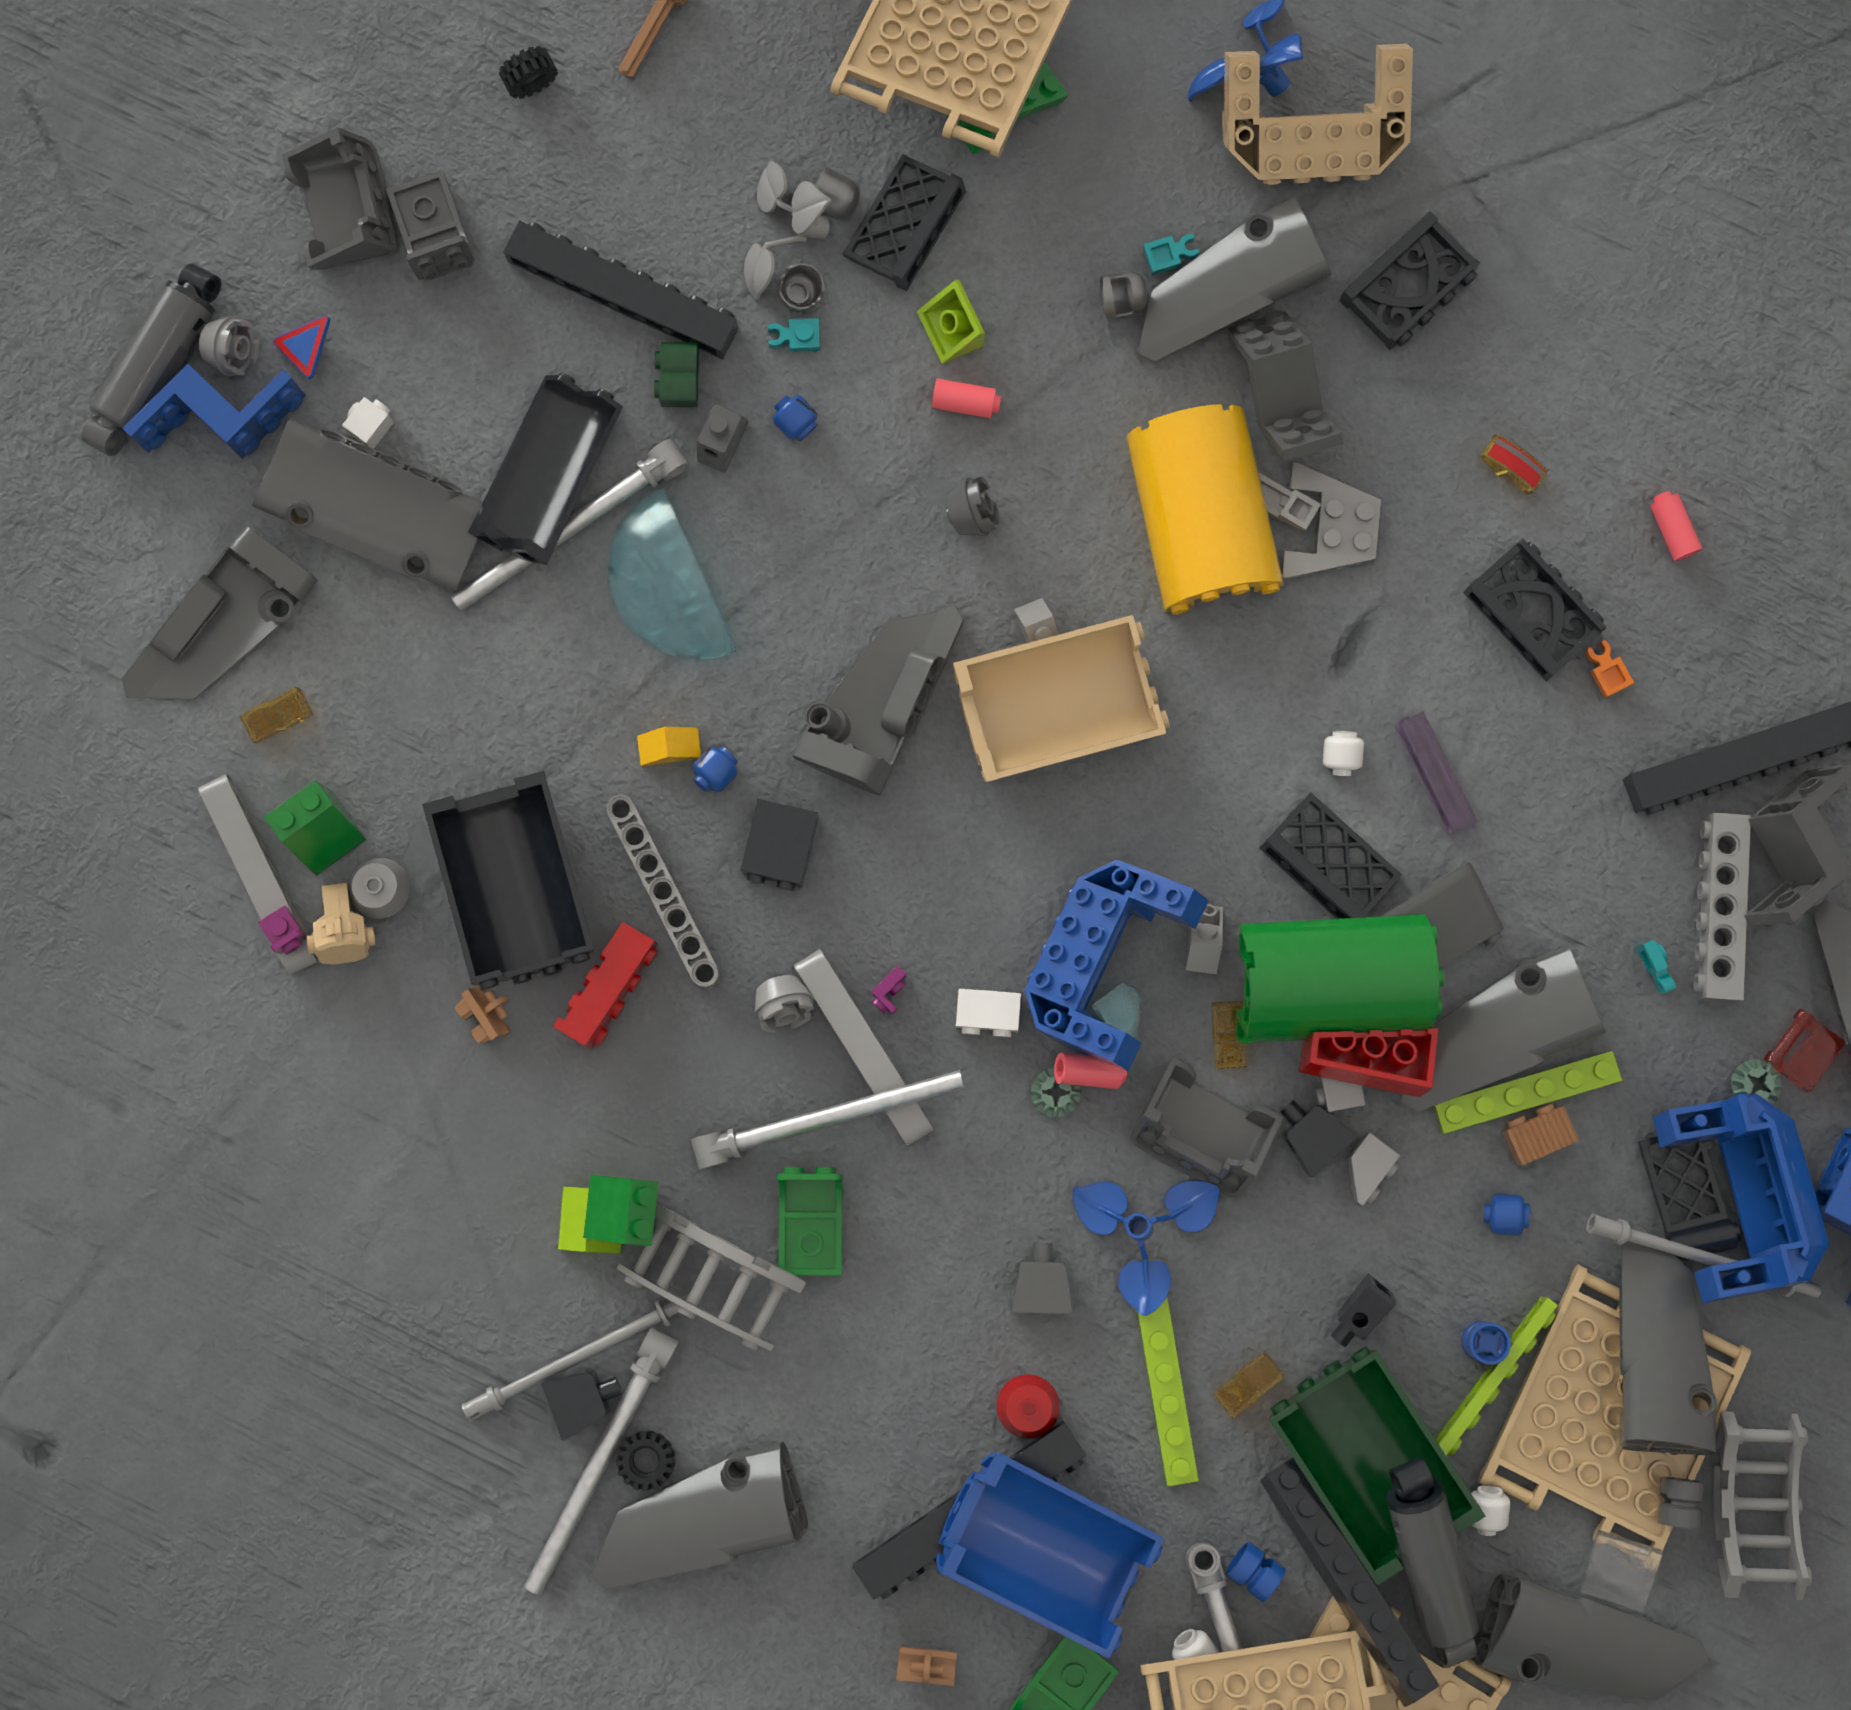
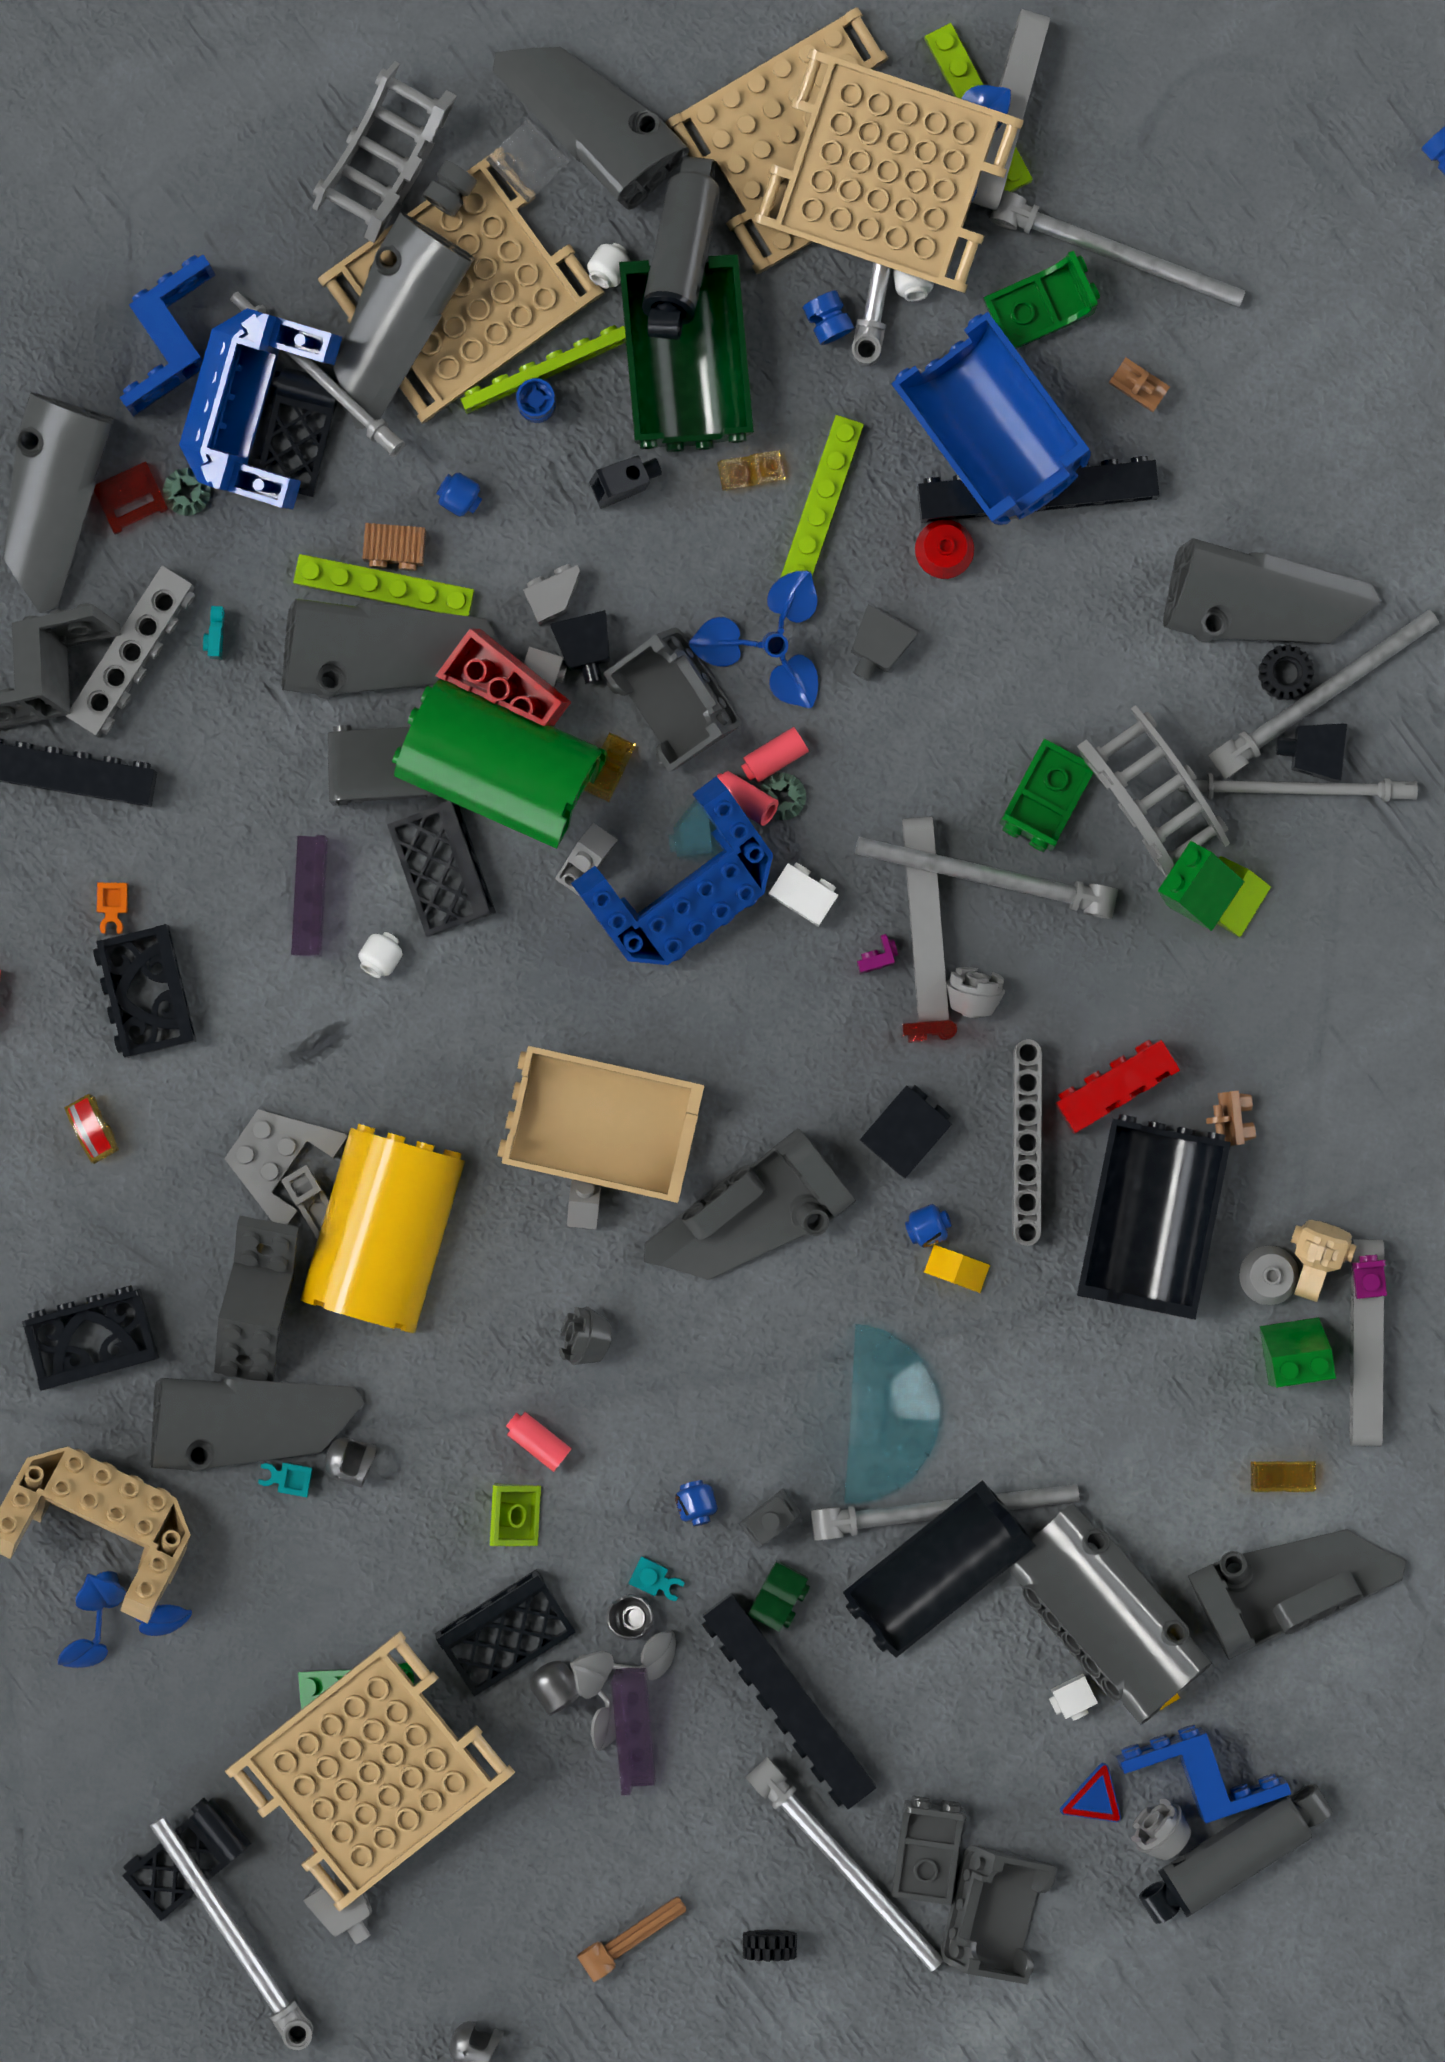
camera: 155 degrees left, 5 degrees up
(601, 212) = (772, 1783): none -> flat silver piece
(747, 192) = (633, 1728): none -> clear purple fence
(815, 938) = (919, 1031): none -> clear red plate
(1083, 1125) = (774, 755): none -> coral brick
(1349, 1583) = (758, 269): black brick -> none

